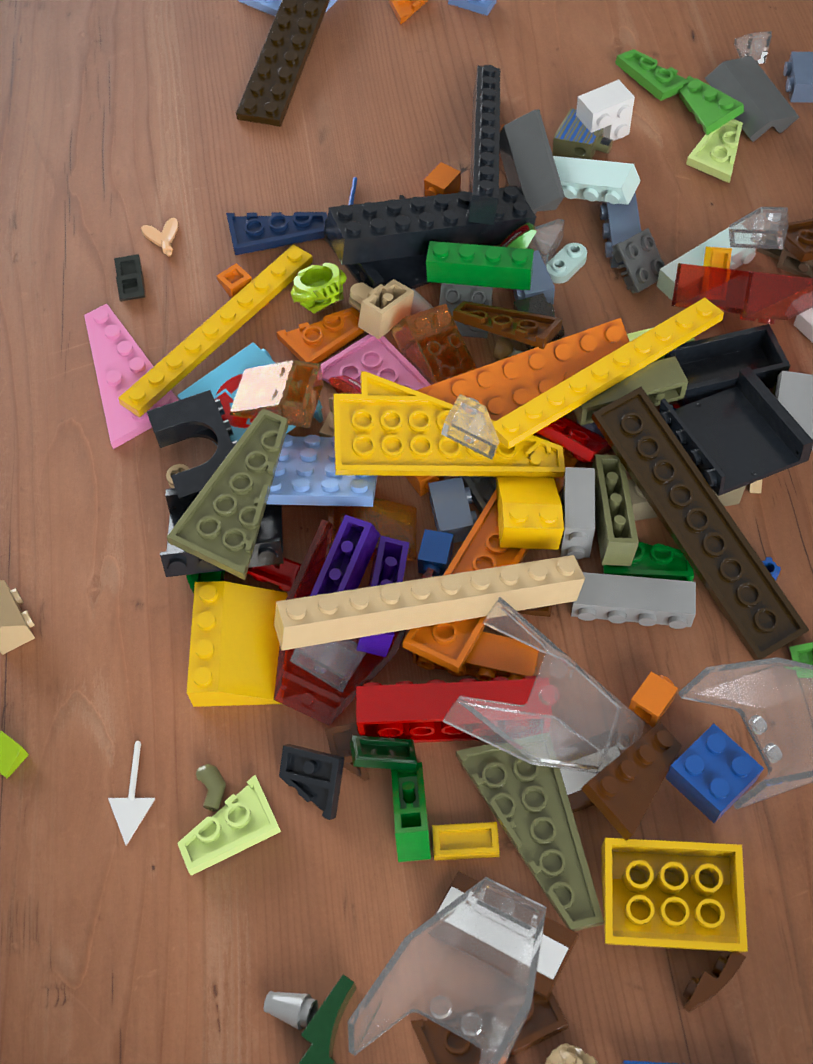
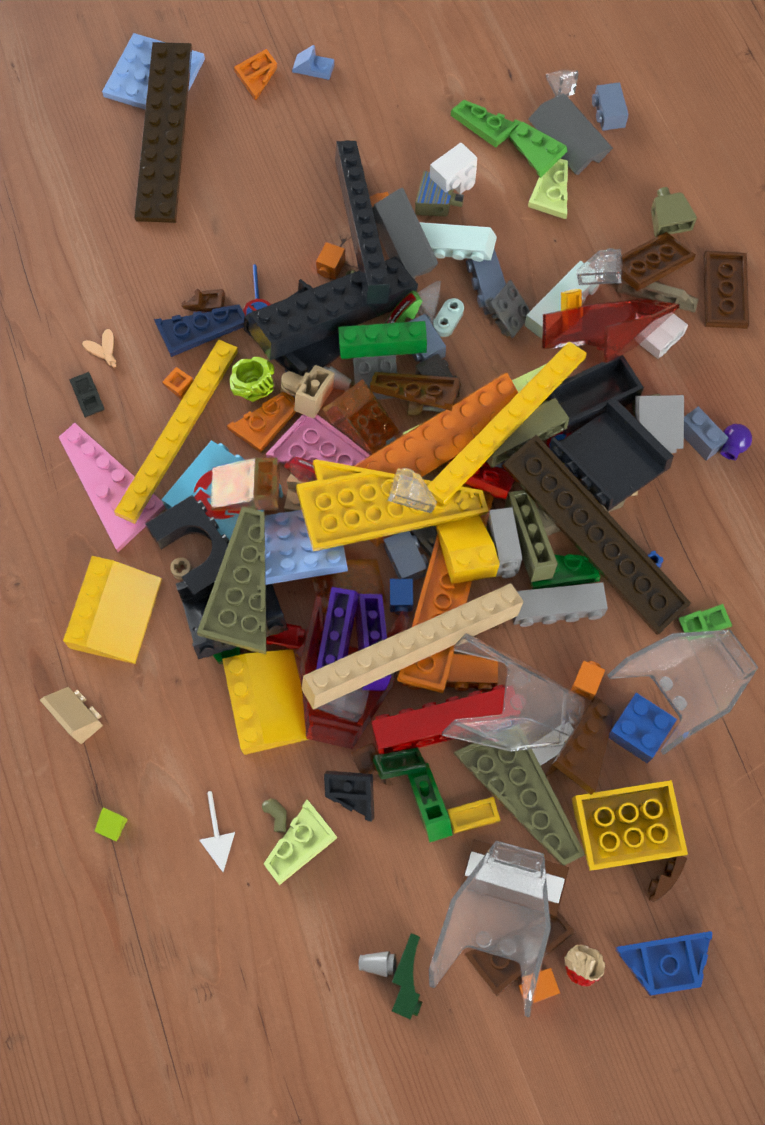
camera: 15 degrees left, 10 degrees up
(84, 508) = (112, 610): none -> yellow slope
(289, 204) = (205, 300): none -> reddish brown slope

